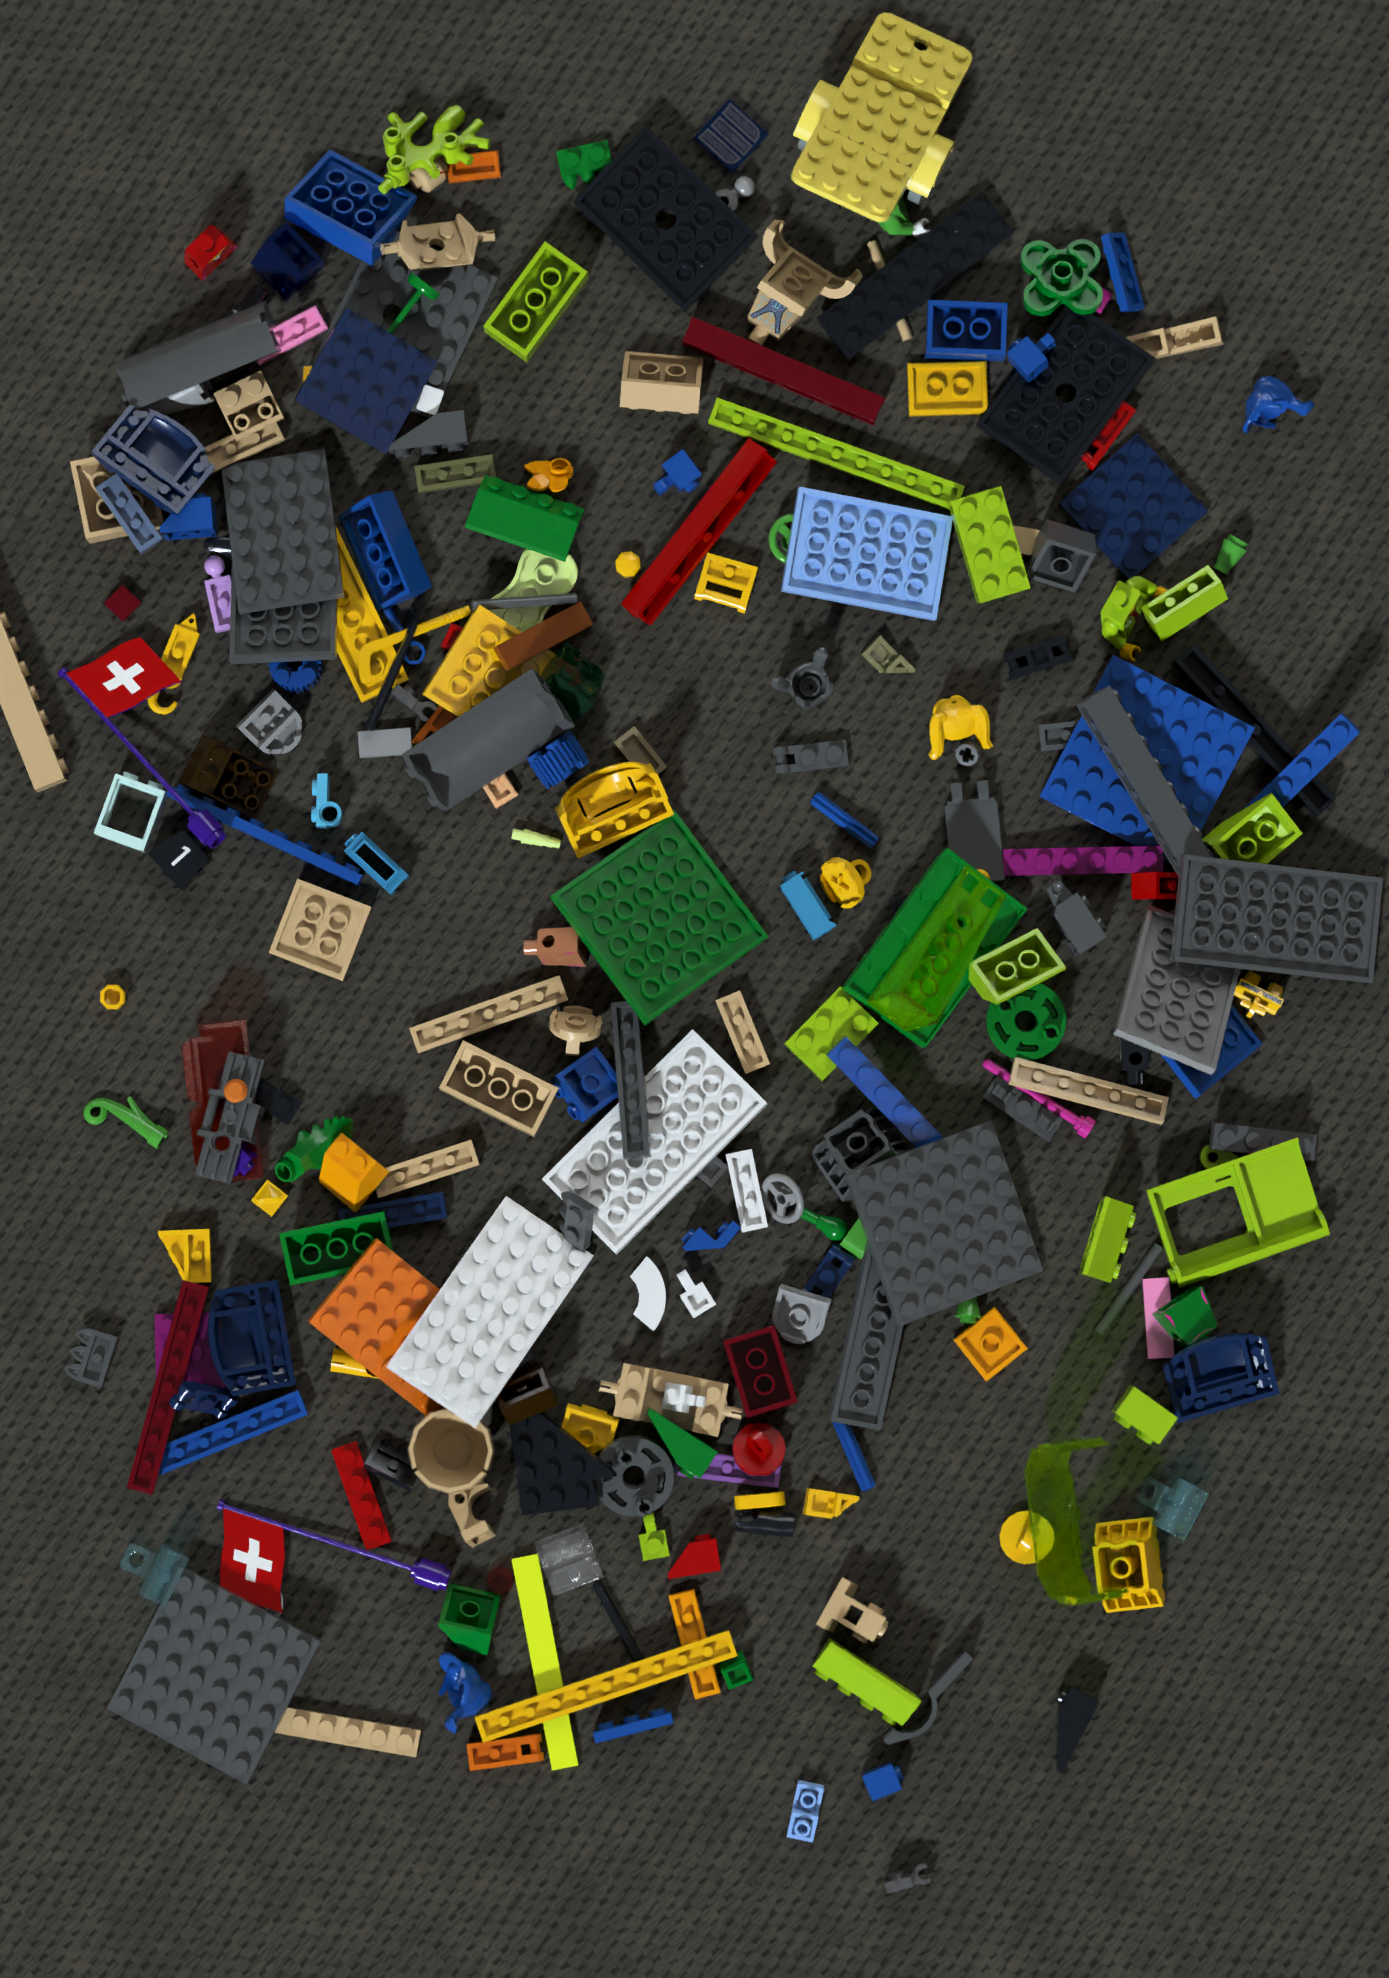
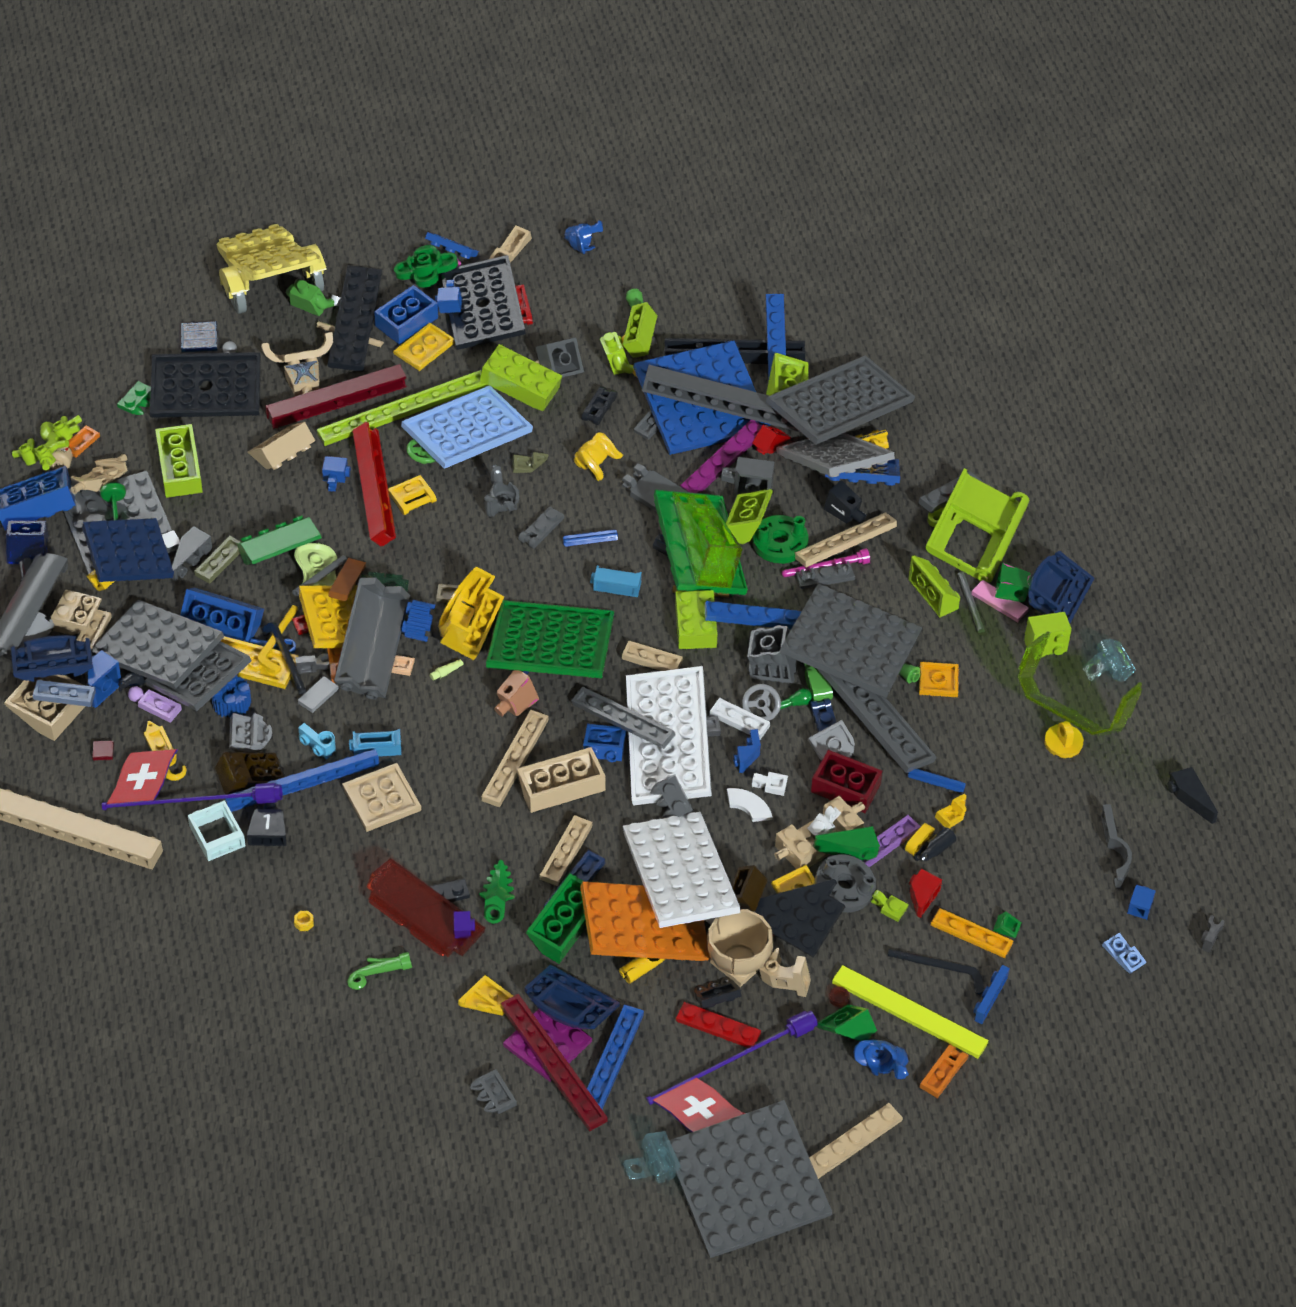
camera: 50 degrees left, 35 degrees down
(204, 1399) = (578, 1048): dark blue plate -> none
(238, 1120) = (441, 899): dark grey piece -> none
(269, 1198) = (500, 936): yellow tile -> none
(296, 331) = (64, 578): bright pink tile -> none
(350, 1172) = (529, 879): light orange slope -> none
(549, 474) = (271, 519): light orange plate -> none
(568, 1559) = (861, 953): clear slope -> none
(575, 1025) = (569, 724): tan tile -> none
(606, 1686) = (953, 988): yellow plate -> none
(627, 564) = (353, 527): yellow tile -> none
(758, 1449) = (889, 816): red tile -> none
(843, 882) = (622, 554): yellow tile -> none
(866, 1682) = (1075, 861): lime slope -> none
(870, 1625) = (1022, 848): tan tile -> none
(975, 751) = (616, 458): dark grey bush -> none
(1129, 1558) = (1110, 696): yellow slope -> none
(1133, 507) = (567, 317): dark blue plate -> none

